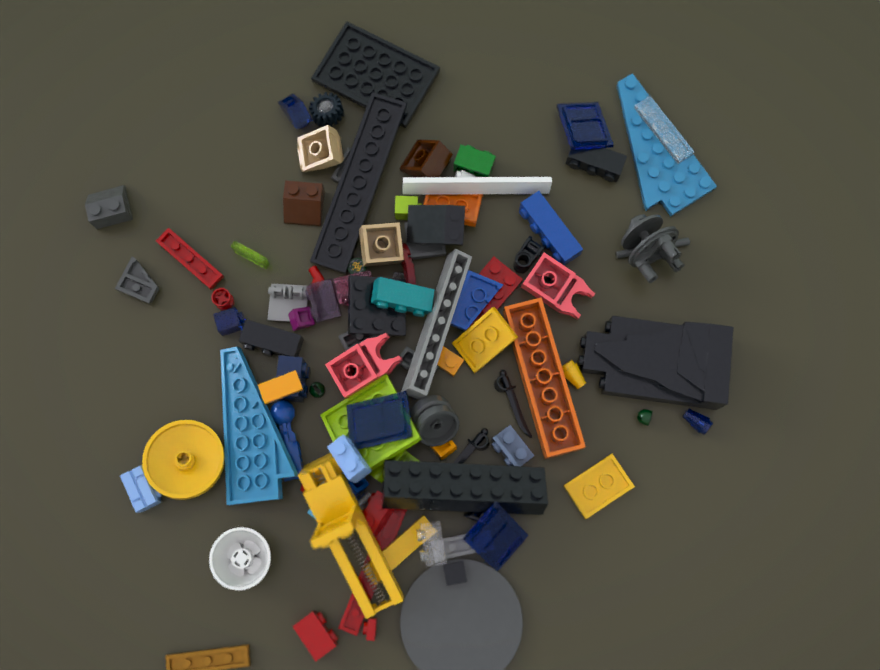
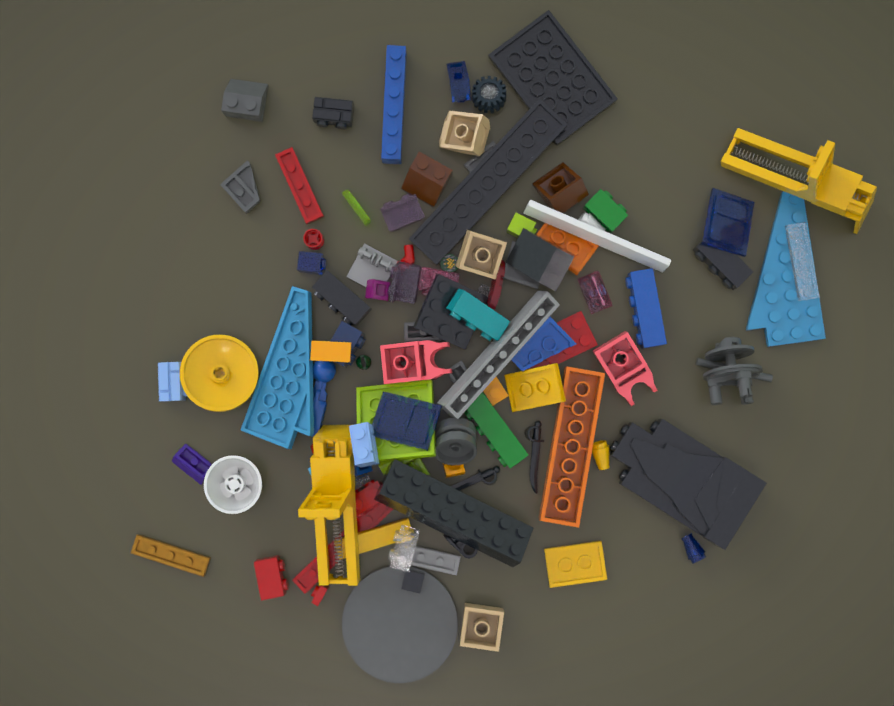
camera: 30 degrees right, 10 degrees up
(191, 559) = (192, 463): none -> dark purple slope
(193, 183) = (333, 112): none -> black brick
(246, 153) = (394, 104): none -> blue brick
(293, 240) = (402, 212): none -> clear purple bracket
(468, 396) = (496, 431): none -> green brick
(495, 536) = (462, 568): clear blue piece -> none
(498, 236) = (595, 292): none -> clear pink slope
(512, 447) = (514, 495): sand blue bracket -> none
(529, 252) = (616, 322): black piece -> none
(540, 586) = (481, 627): none -> tan brick
(644, 416) = (647, 522): dark green hinge -> none
(655, 56) = (828, 185): none -> yellow piece

